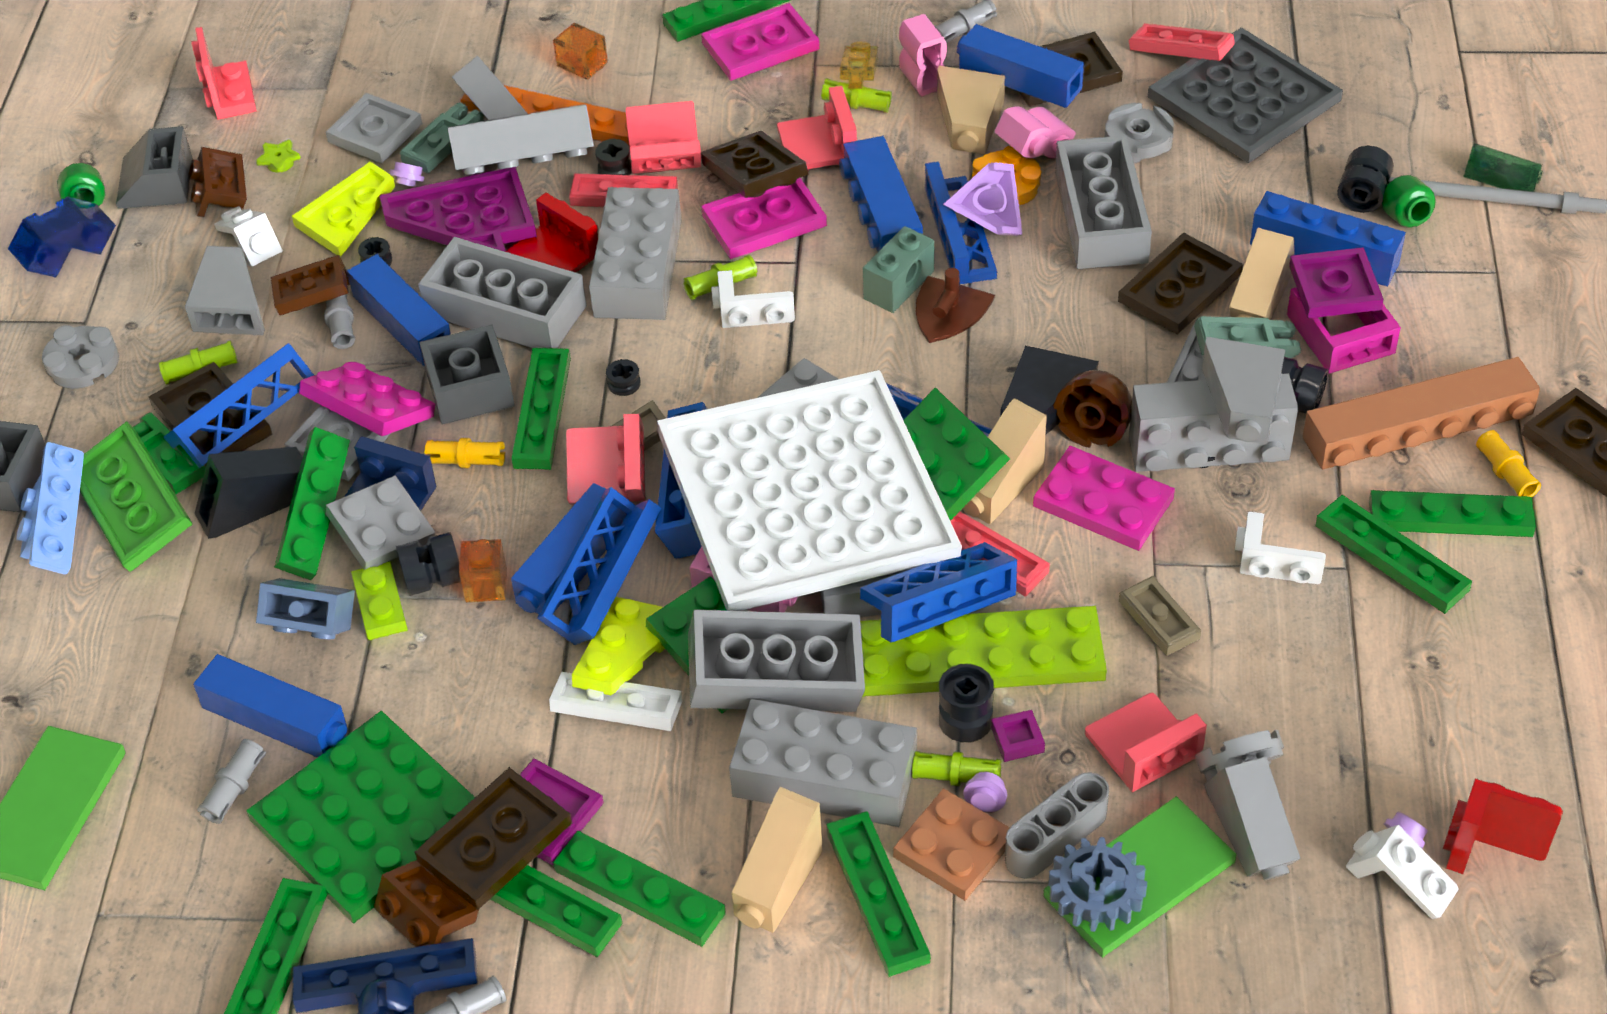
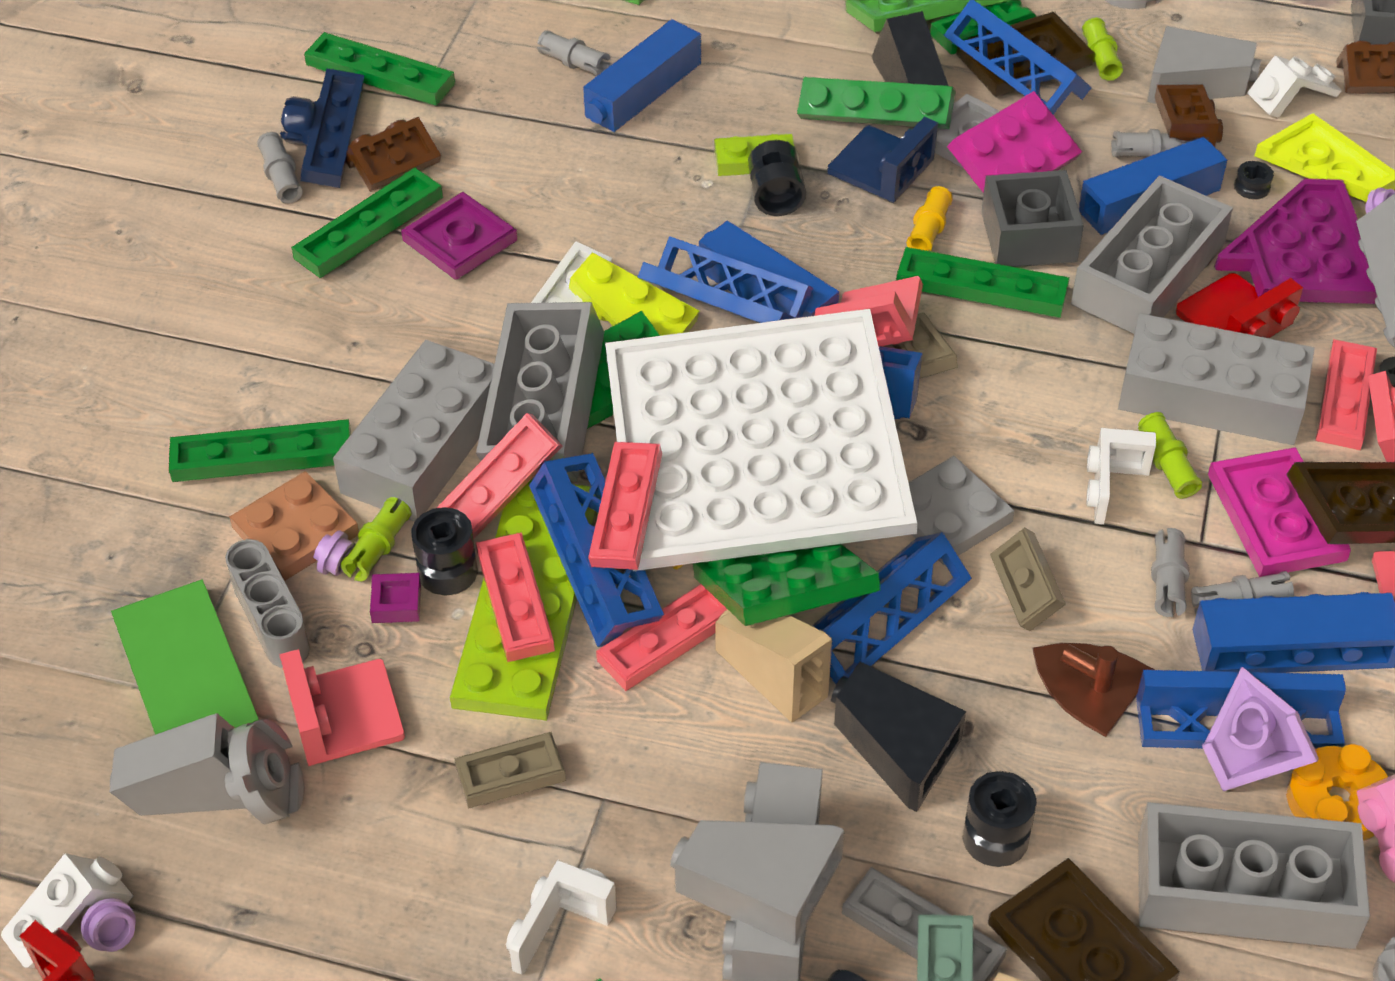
camera: 100 degrees right, 0 degrees up
(305, 607) = (745, 94): sand blue brick -> none
(360, 812) = (512, 134): green plate -> none
(378, 521) = (837, 146): light grey plate -> none
(483, 570) = (760, 210): clear orange brick -> none
(493, 838) = (425, 184): dark brown plate -> none
(619, 385) = (1022, 345): black bush -> none
(640, 888) = (351, 294): green plate -> none
(778, 860) = (318, 374): tan slope -> none
(836, 268) = (1170, 572): none -> light grey pin
(850, 229) = (1245, 588): none -> light grey pin
(874, 341) = (1027, 579): none -> dark tan plate
(886, 669) = (503, 472): none -> coral tile
(898, 269) = (1149, 620): sand green brick -> none
(912, 553) = (625, 505): none -> coral tile
(1004, 637) = (515, 597): none -> coral tile
(1094, 408) = (854, 769): reddish brown cylinder -> none
(1103, 325) = (999, 818): none -> black wheel
(1104, 497) = (710, 761): dark pink plate -> none
(1120, 884) = (168, 605): sand blue gear -> none

